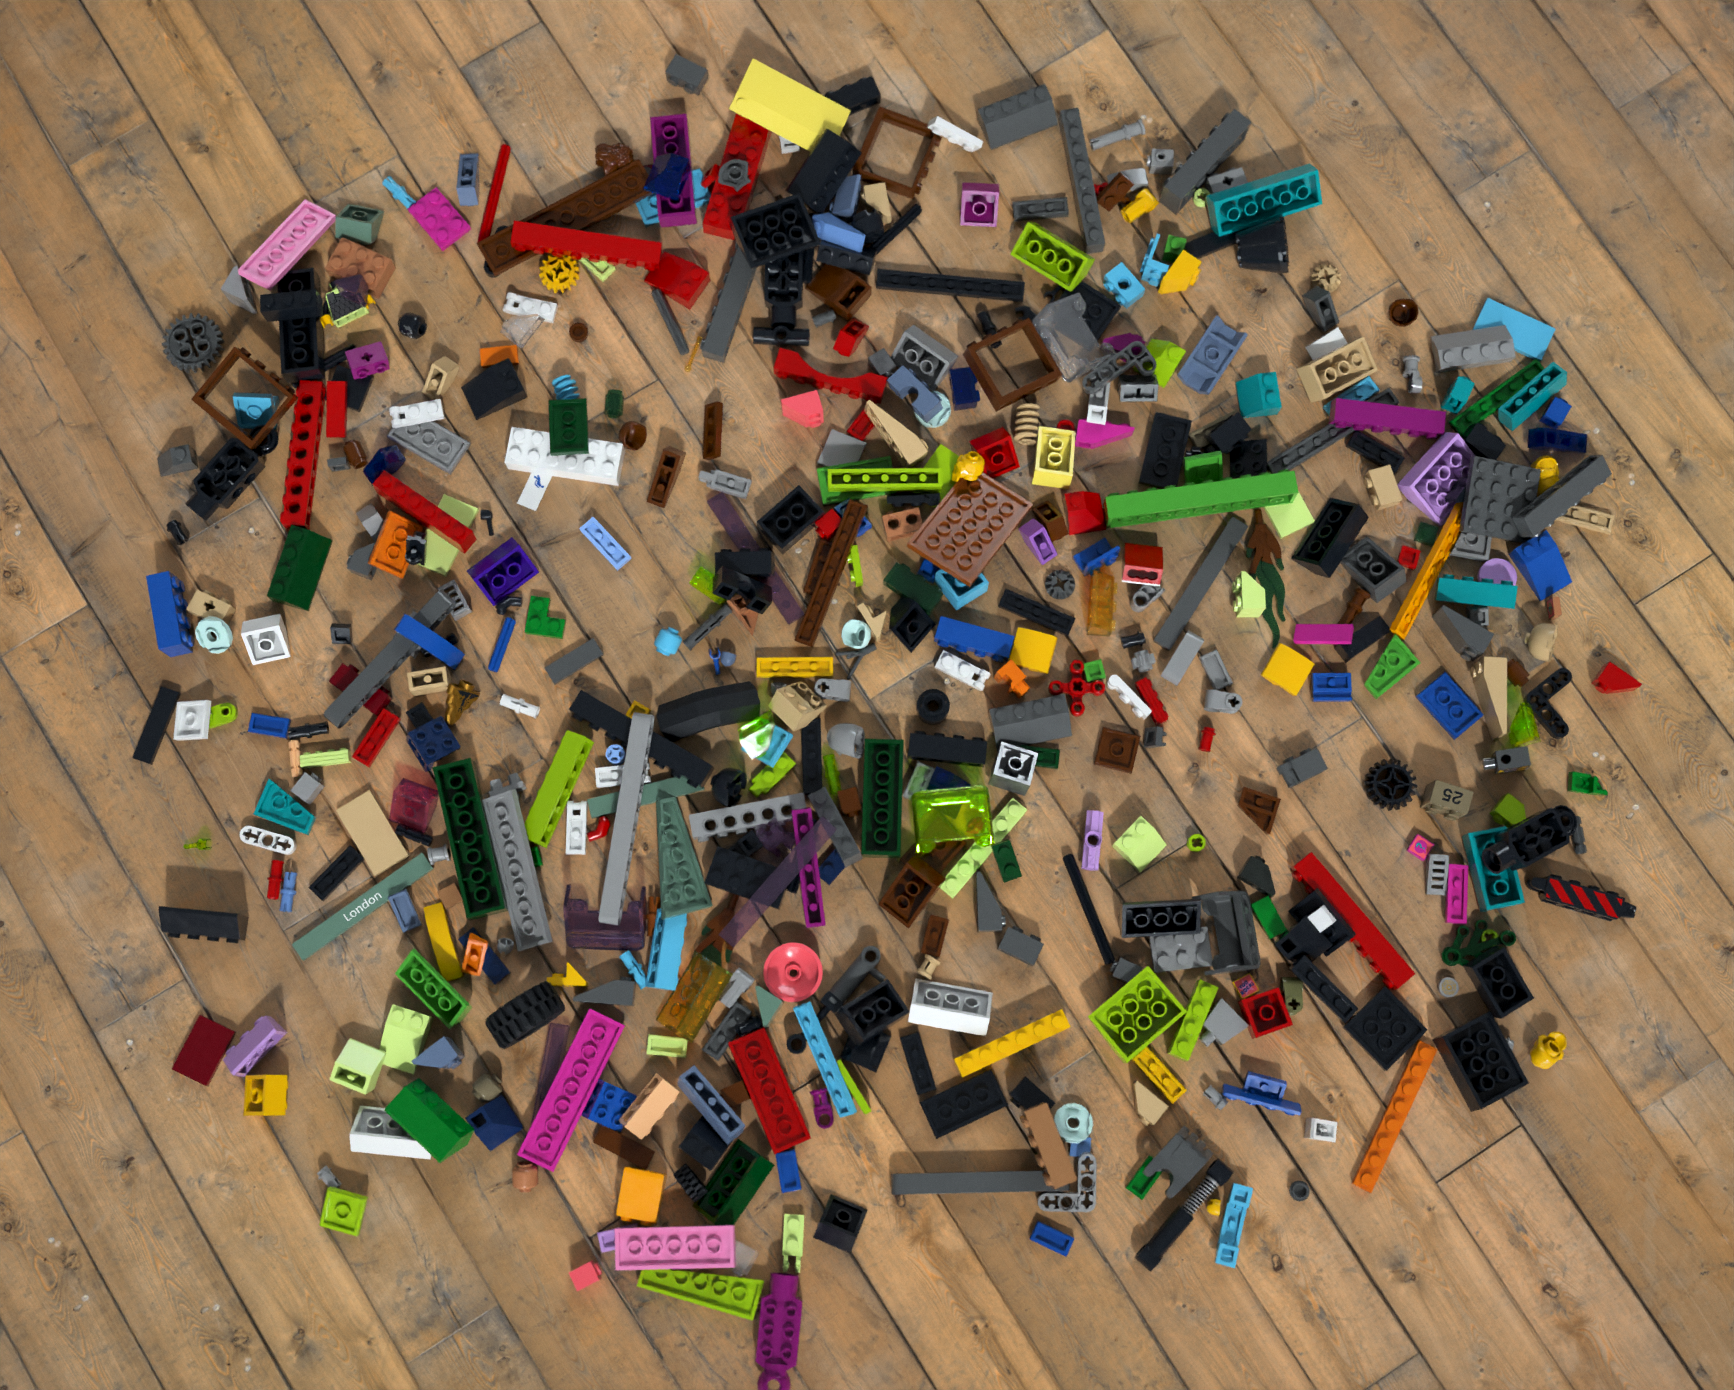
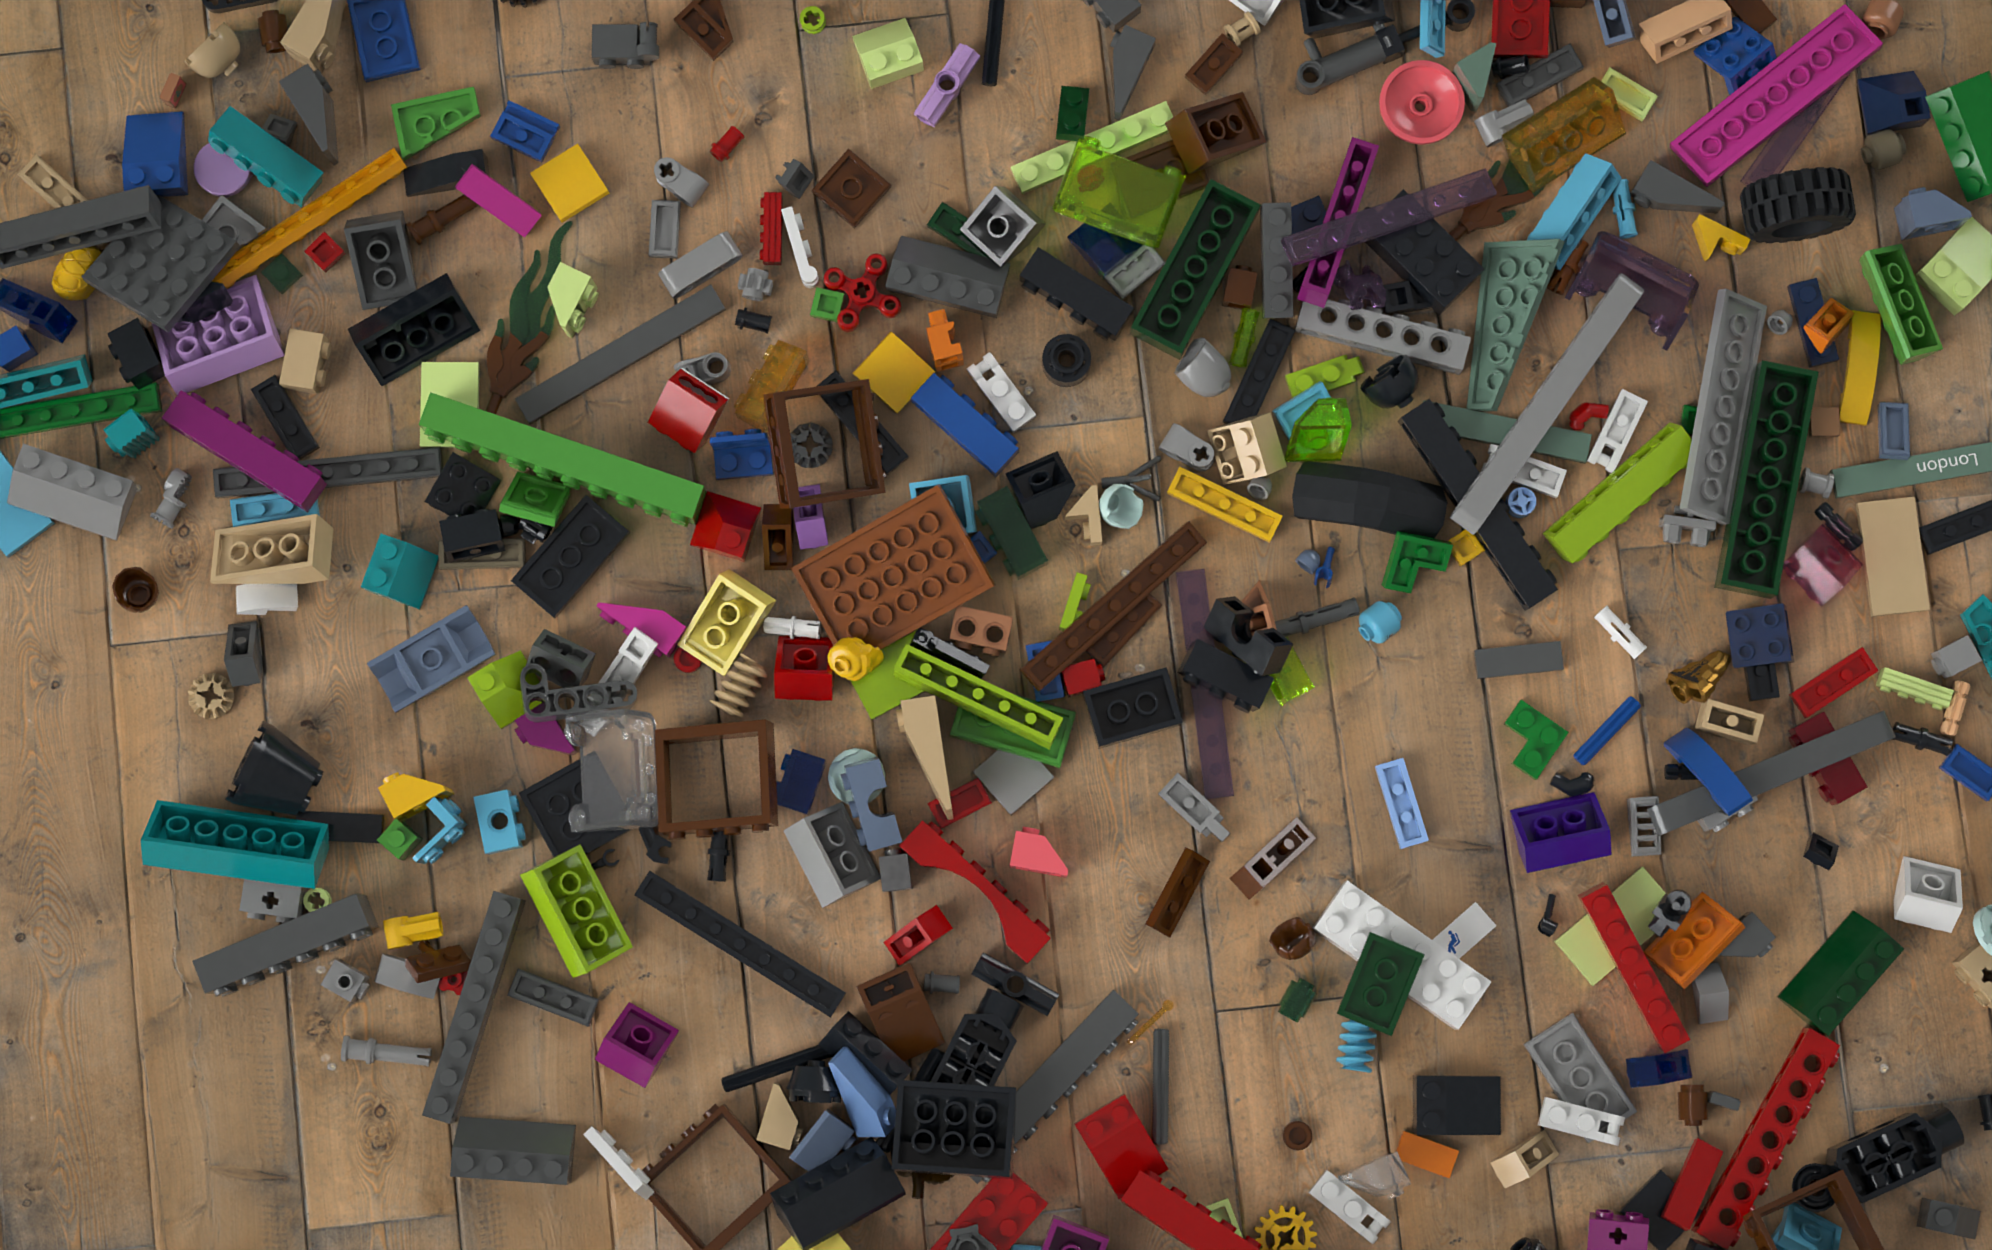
camera: 150 degrees left, 5 degrees up
(667, 691) = (1409, 554): none -> green plate
(1014, 473) = (793, 627): none -> white axle
(1027, 556) = (782, 449): none -> reddish brown window

